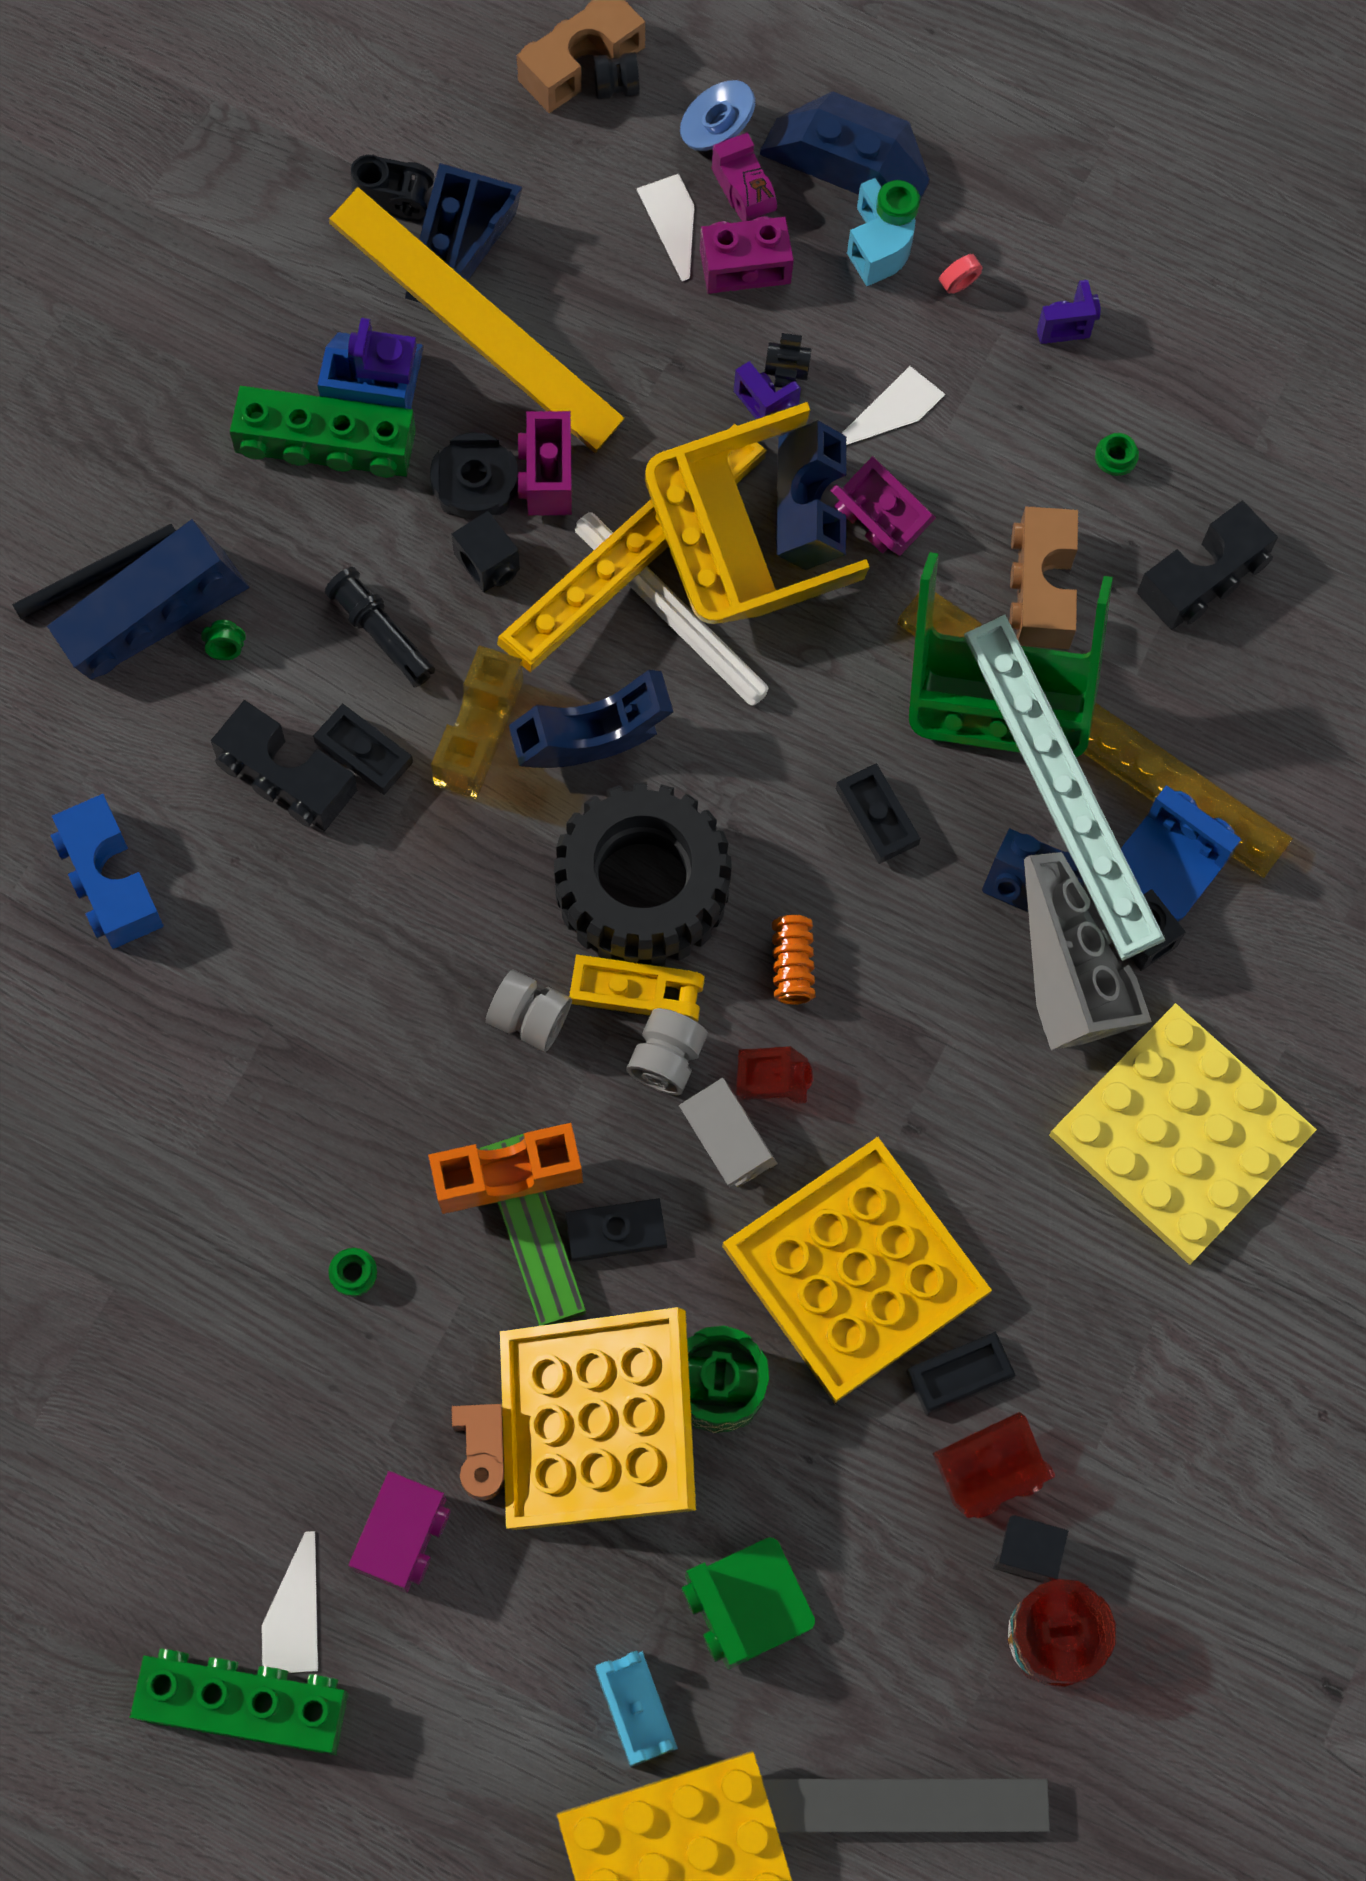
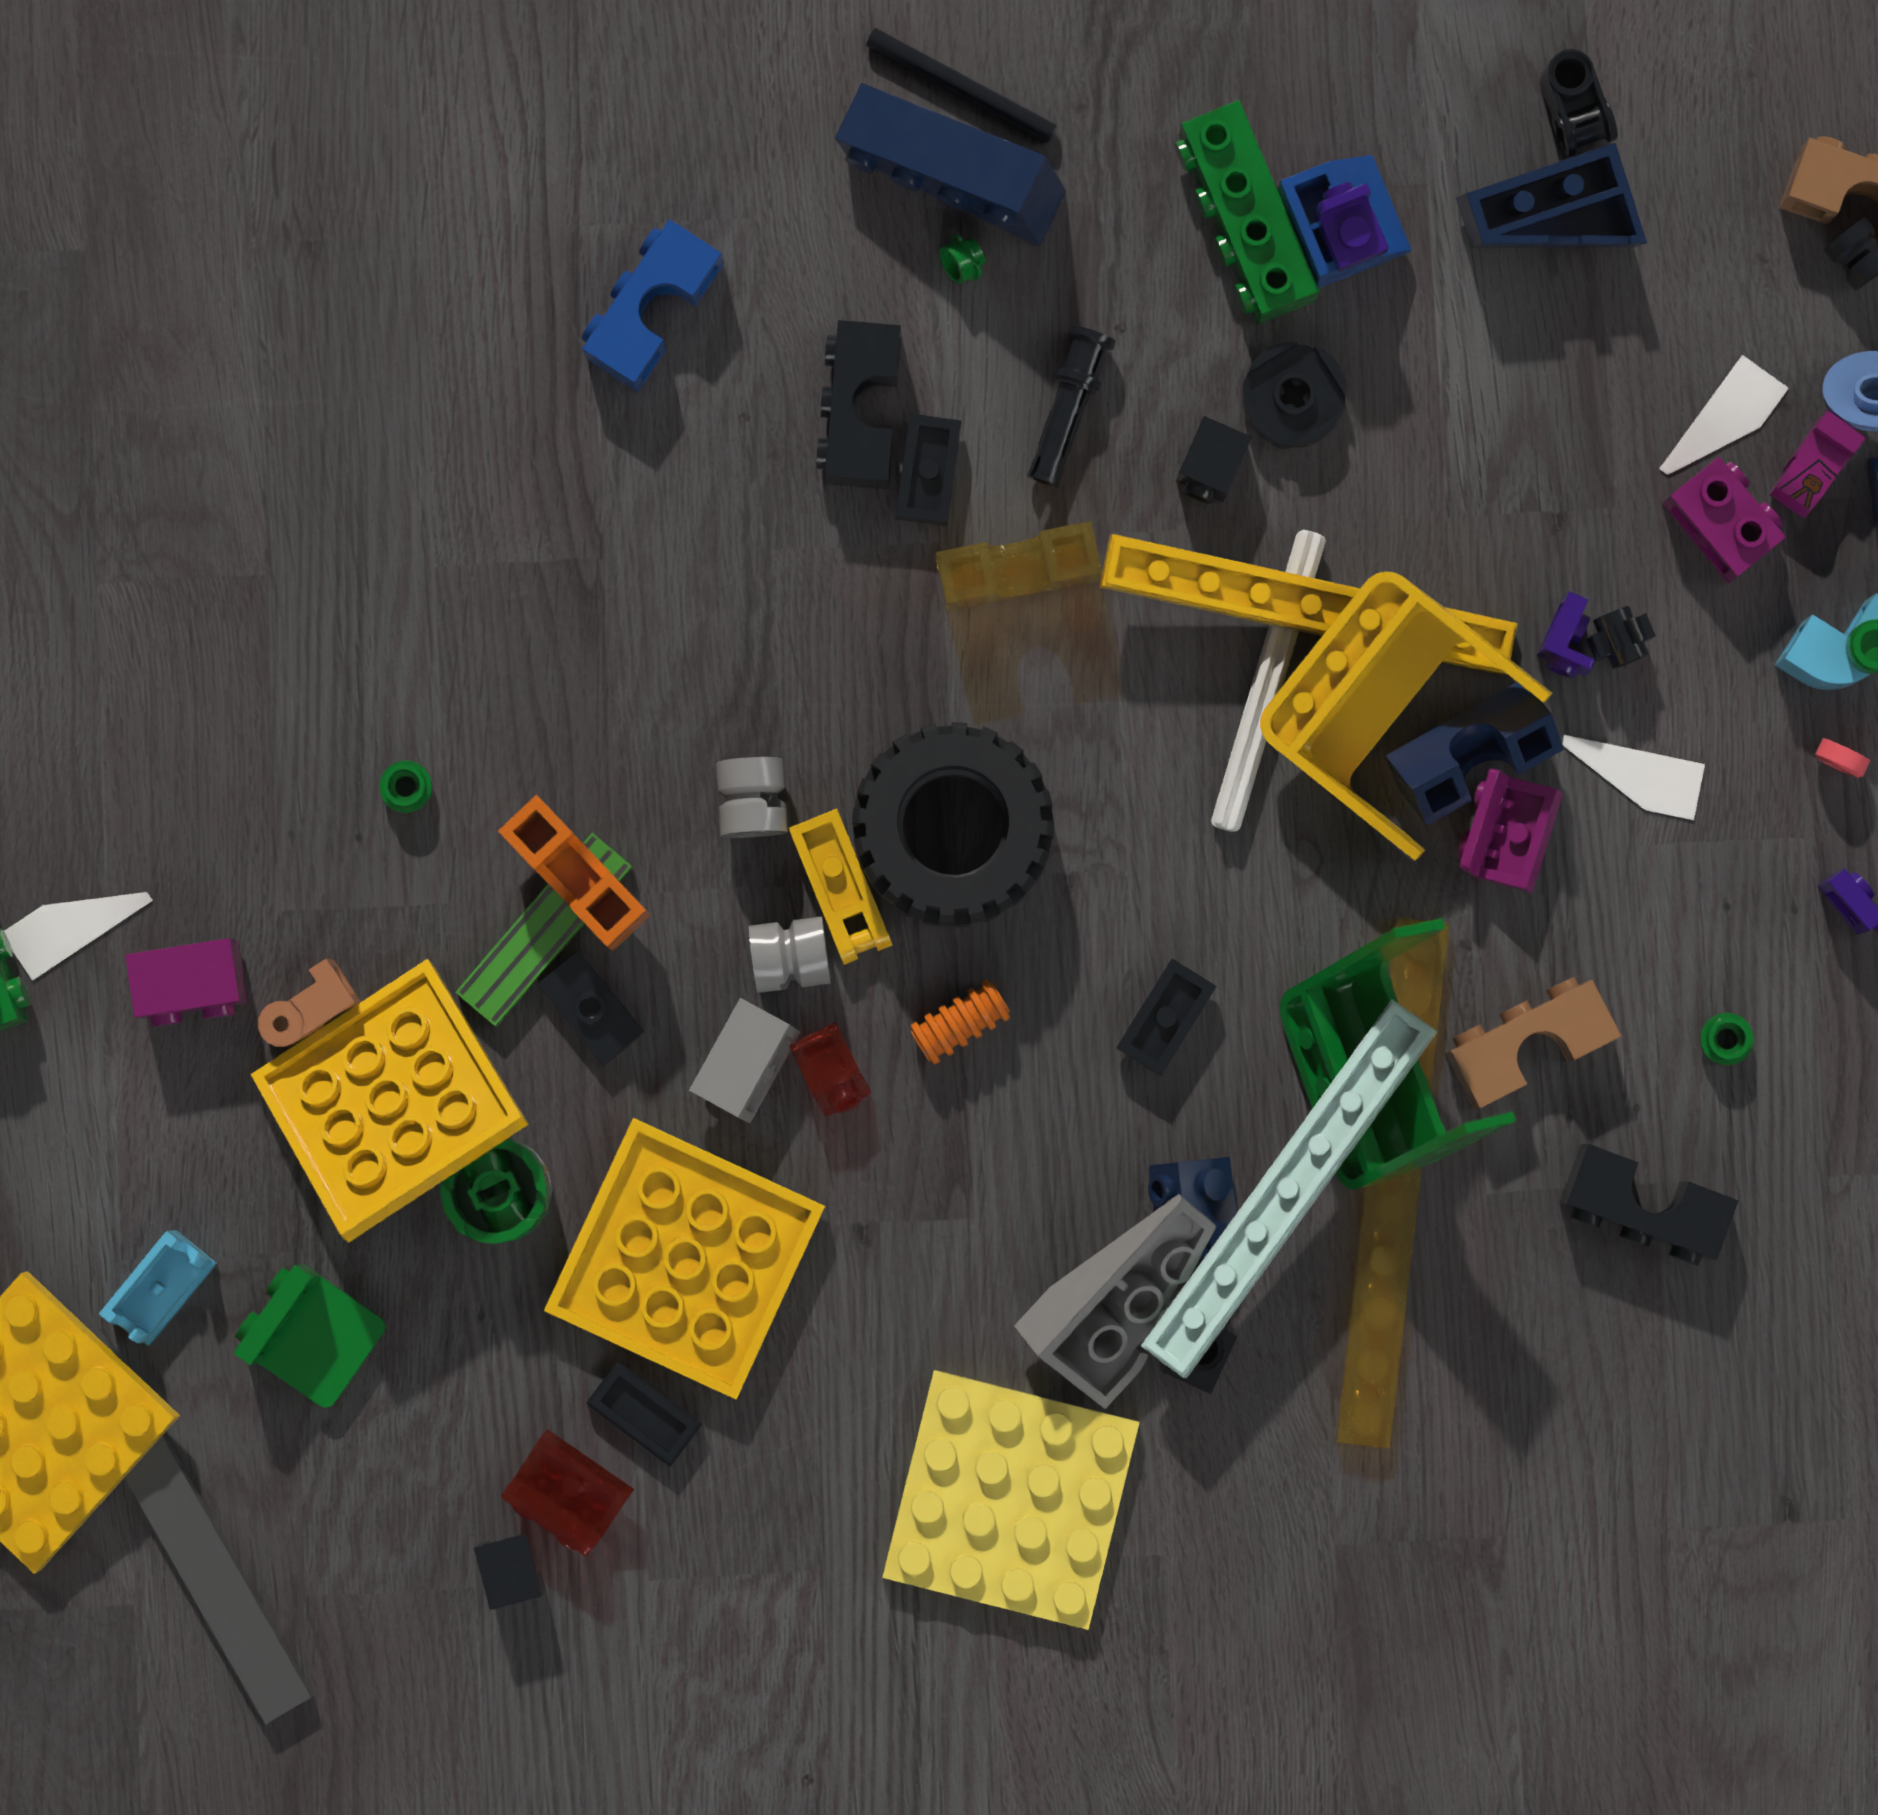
camera: 65 degrees right, 15 degrees up
(474, 318) = (1457, 292): yellow tile -> none
(548, 457) = (1346, 463): magenta brick -> none
(592, 731) = (1080, 680): dark blue arch -> none
(1061, 1633) = (444, 1640): clear red brick -> none
(1178, 850) = (1295, 1338): blue bracket -> none

